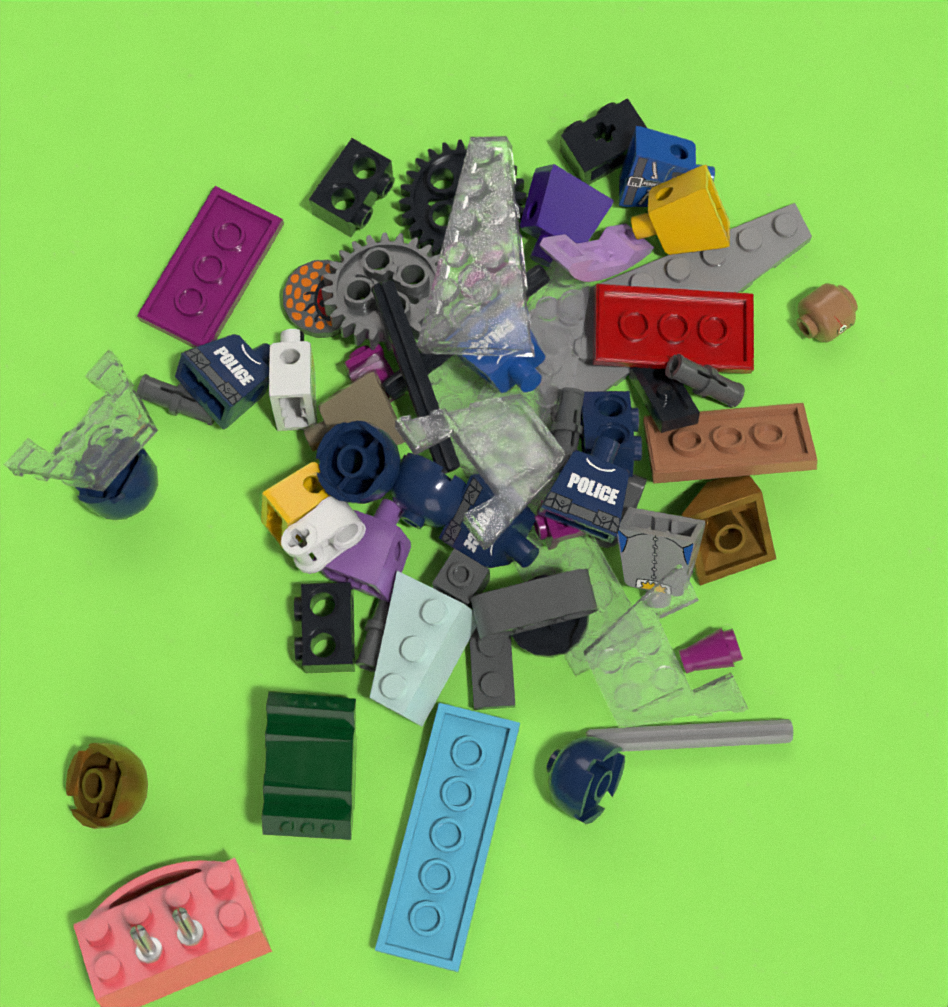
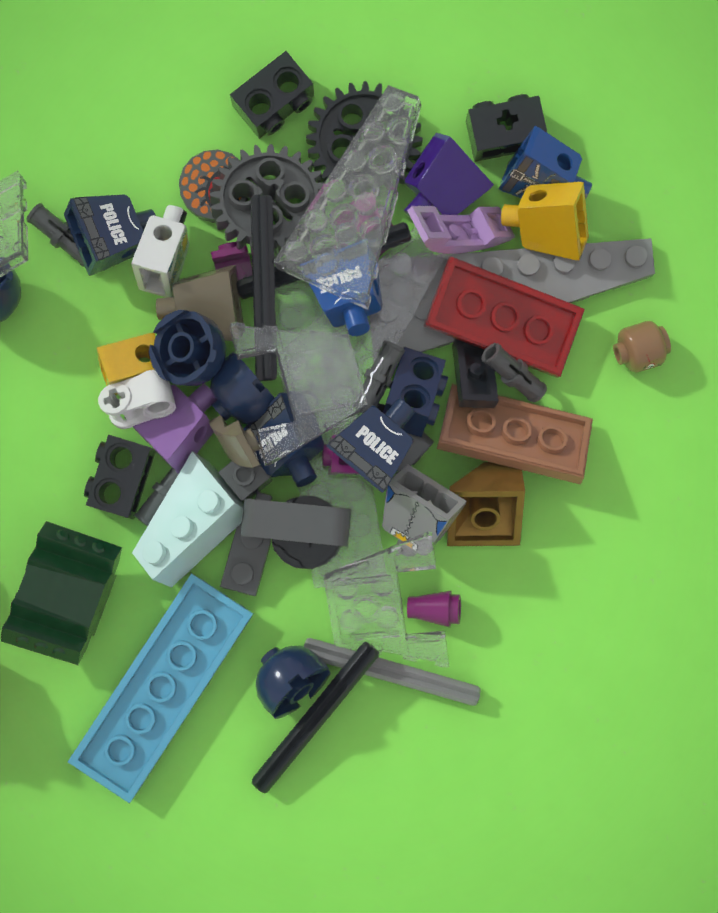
camera: 15 degrees right, 10 degrees up
(211, 269) = (129, 127): magenta tile -> none
(442, 541) = (238, 444): none -> dark tan slope
(626, 810) = (315, 717): none -> black axle

